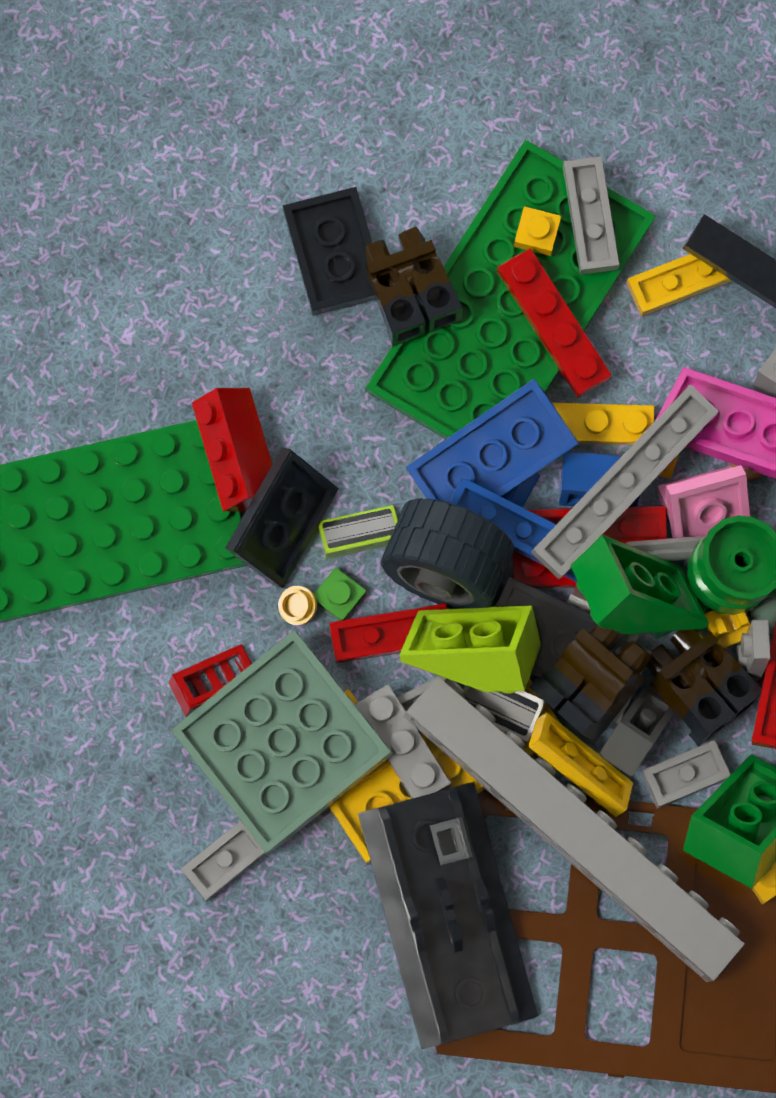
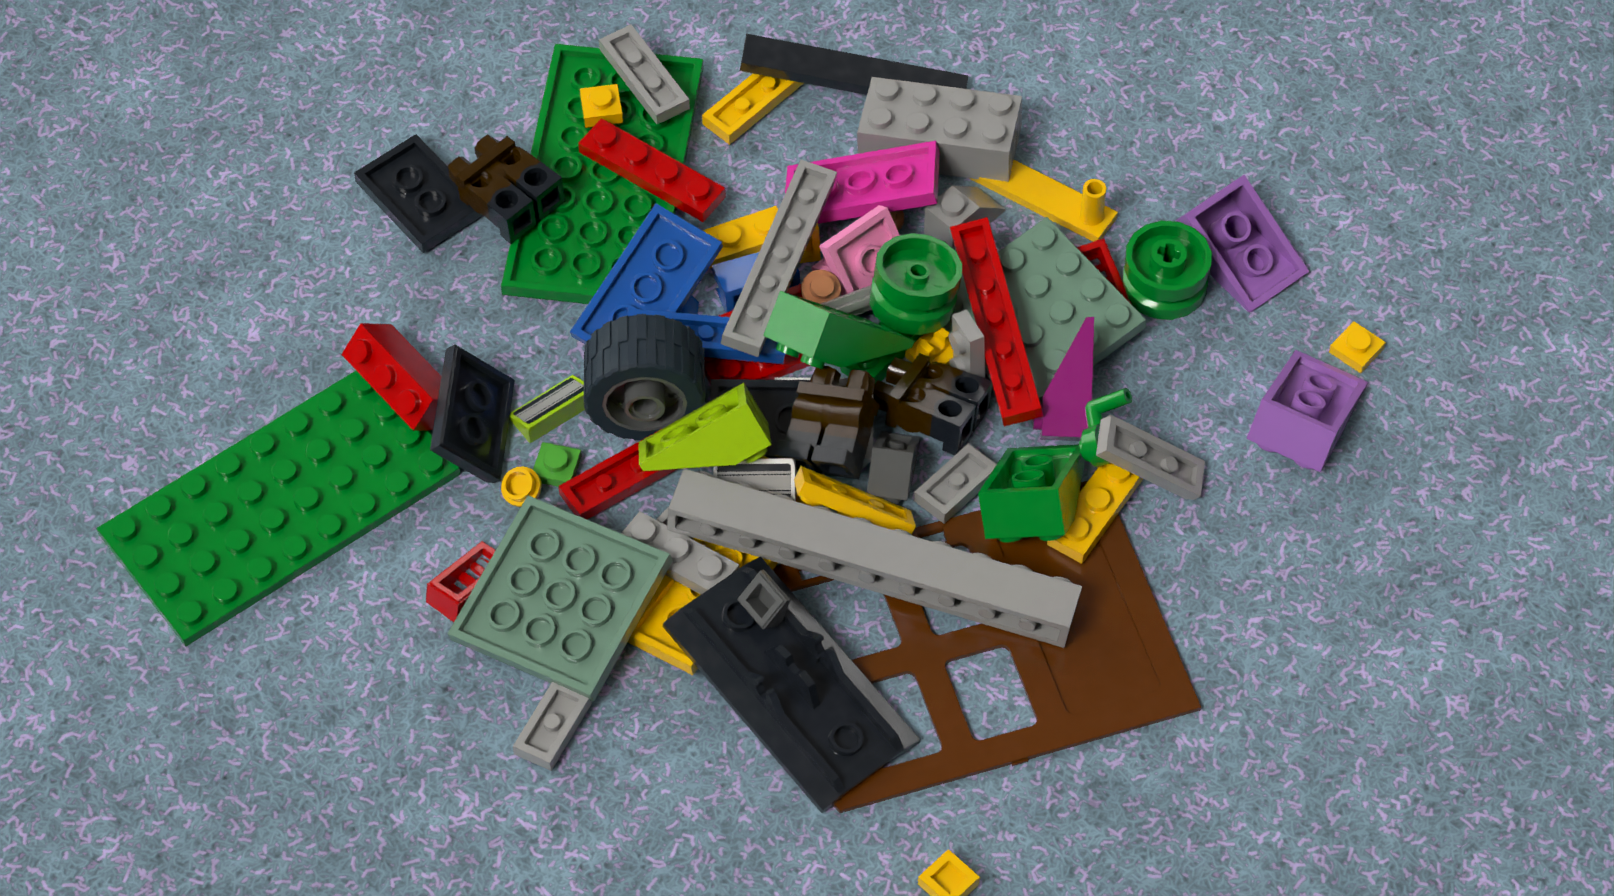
camera: 20 degrees left, 20 degrees down
(651, 522) = (820, 286): none -> nougat plate

